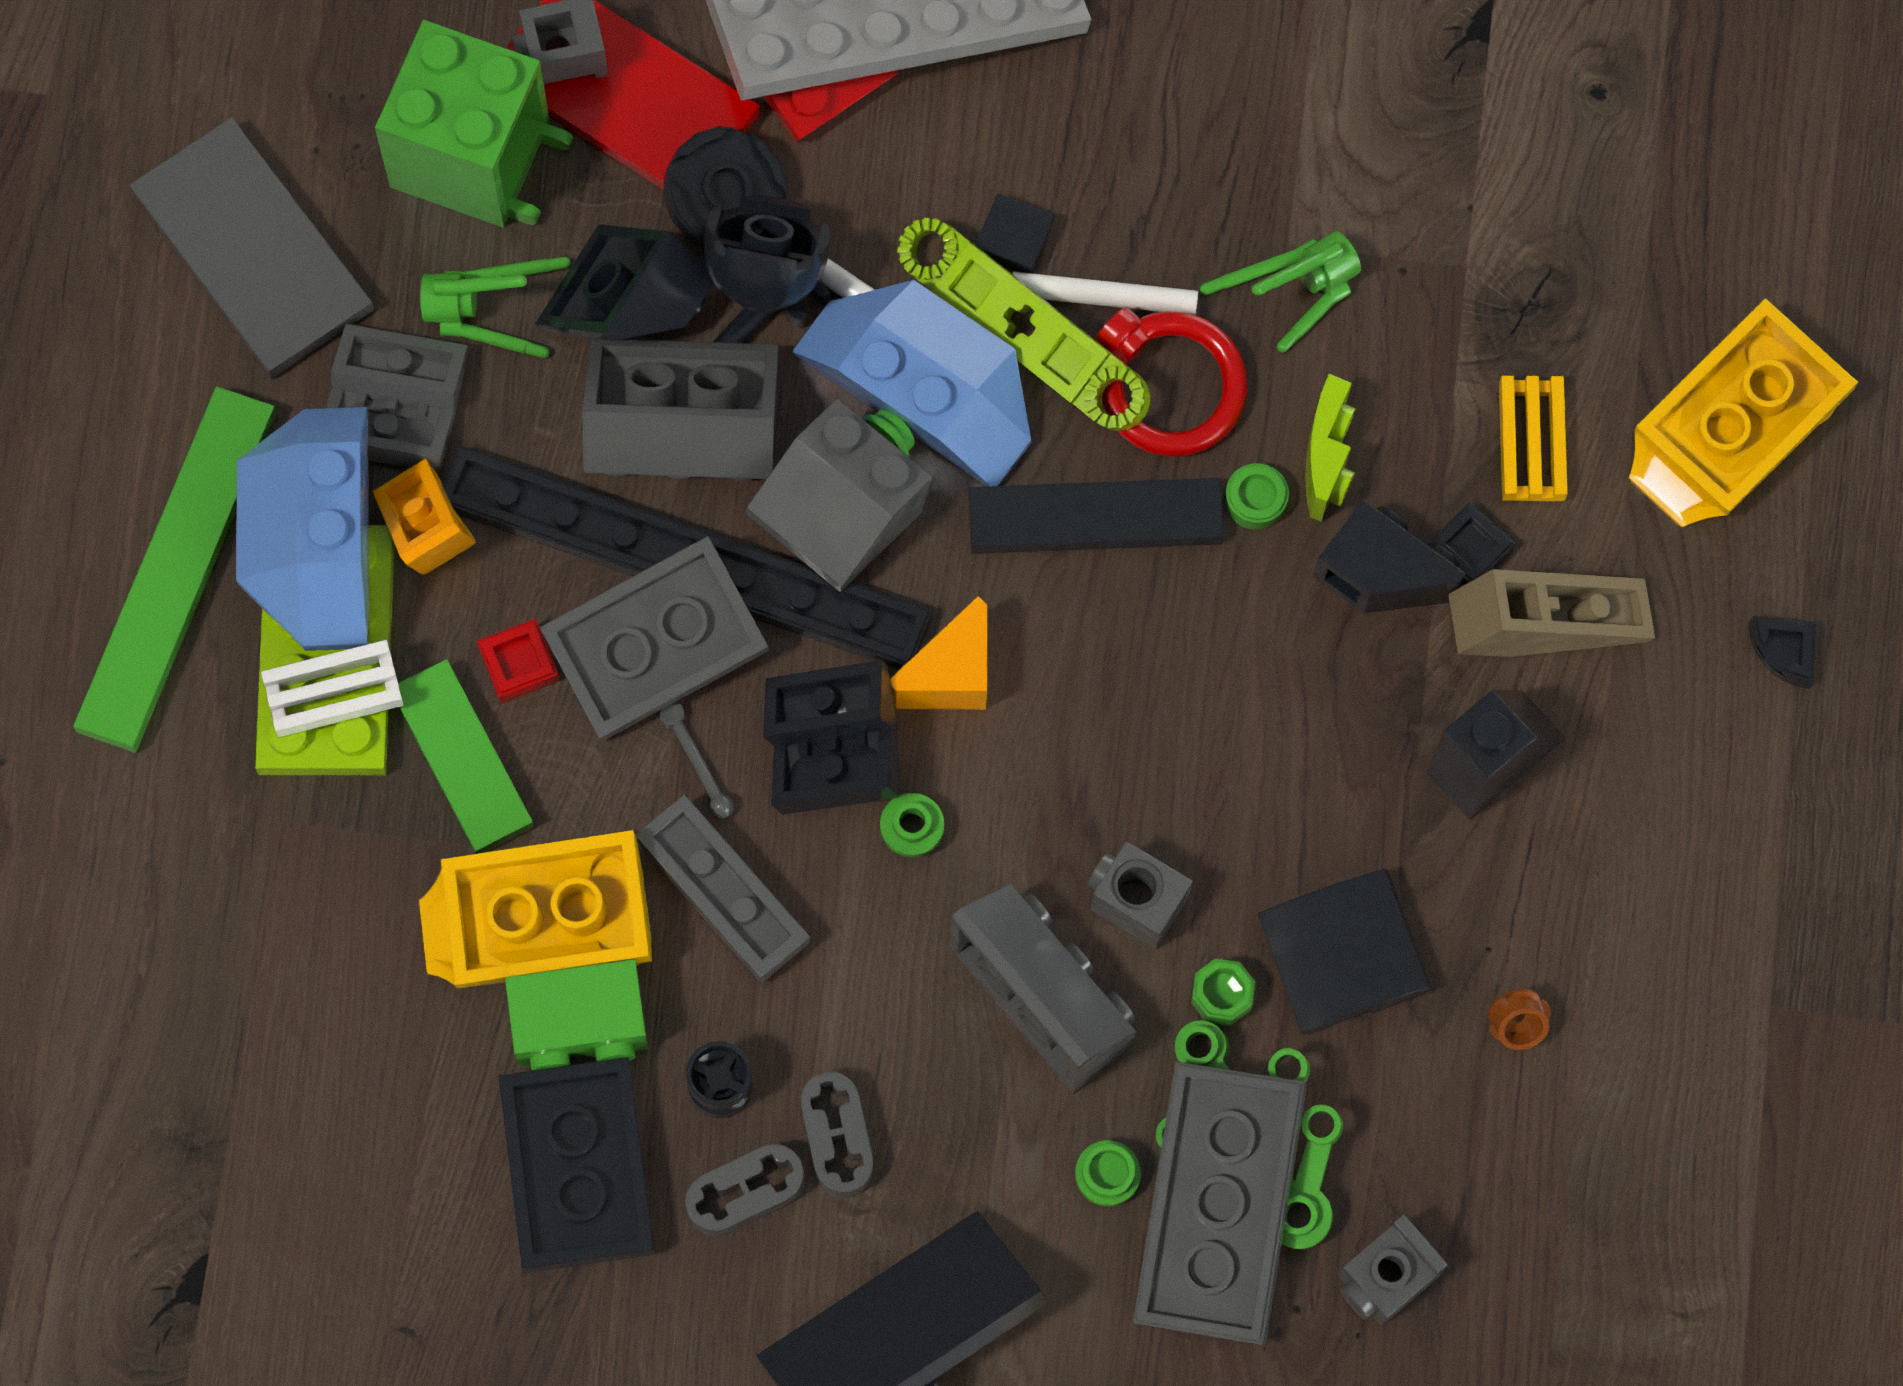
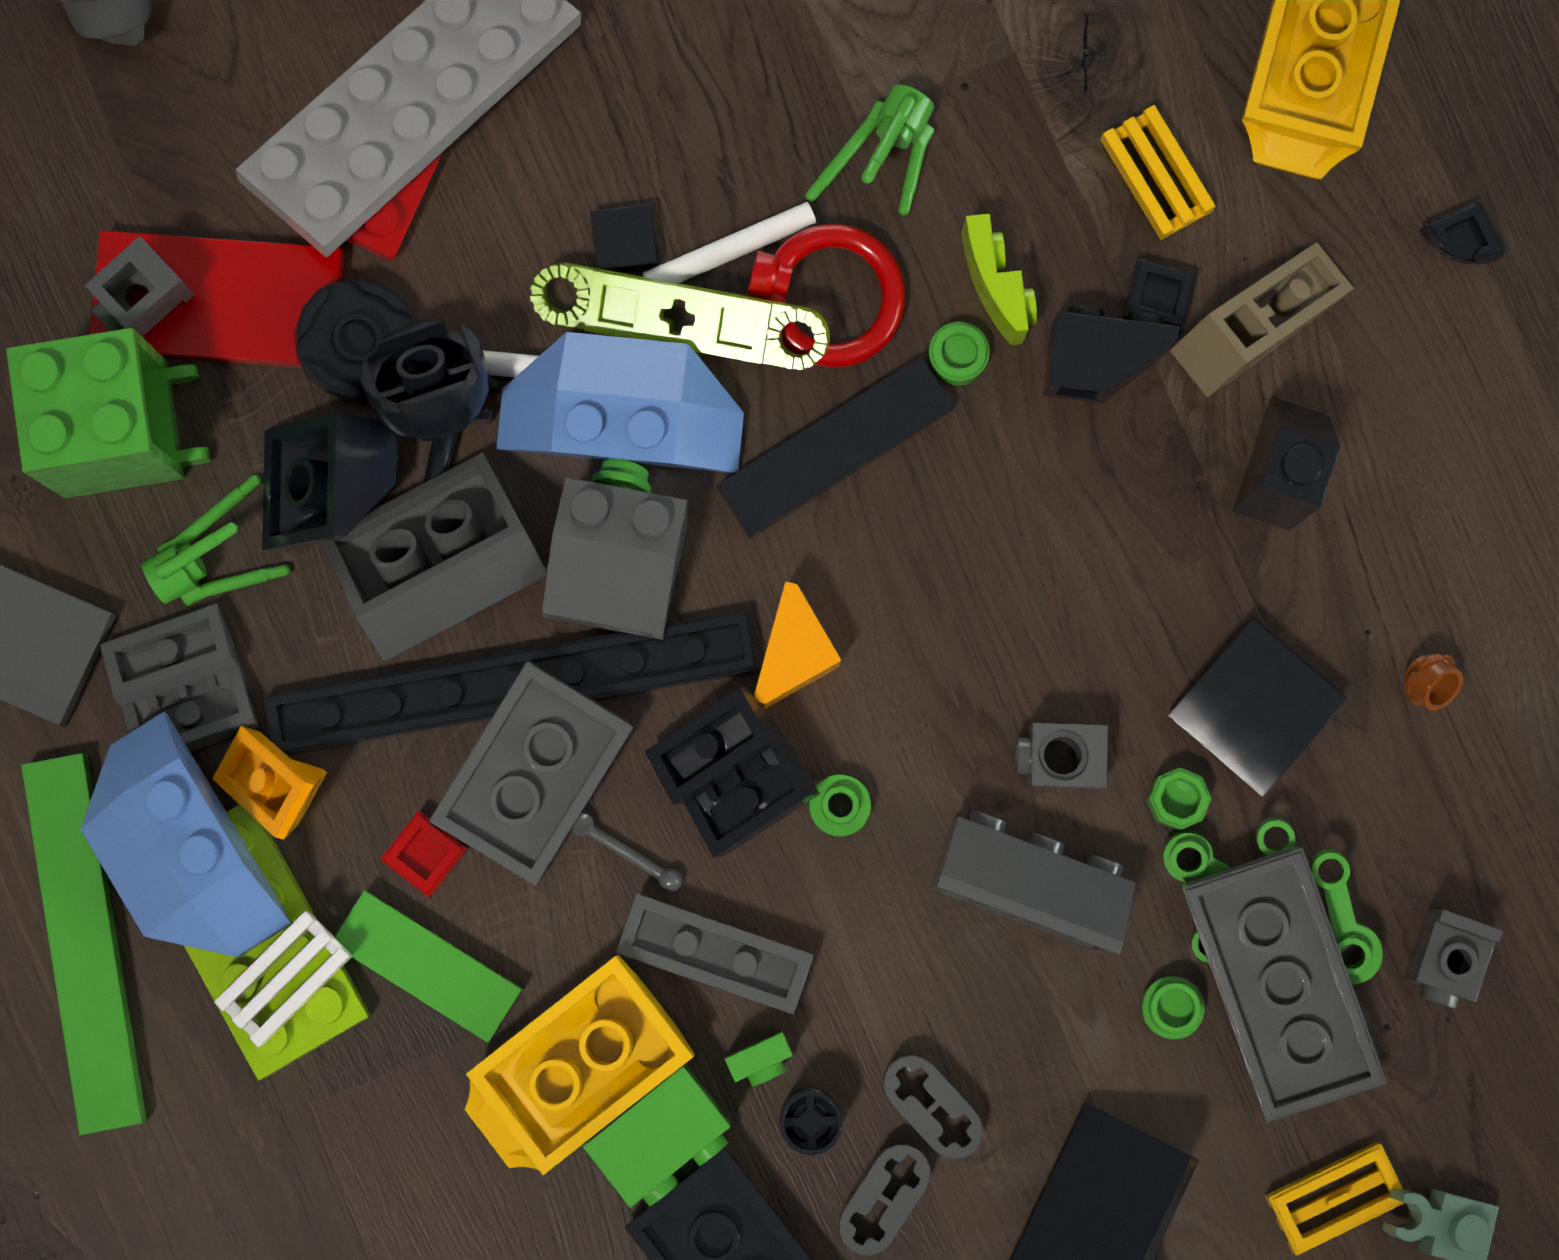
camera: 30 degrees left, 10 degrees up
(707, 999) = (760, 1060): none -> bright green plate

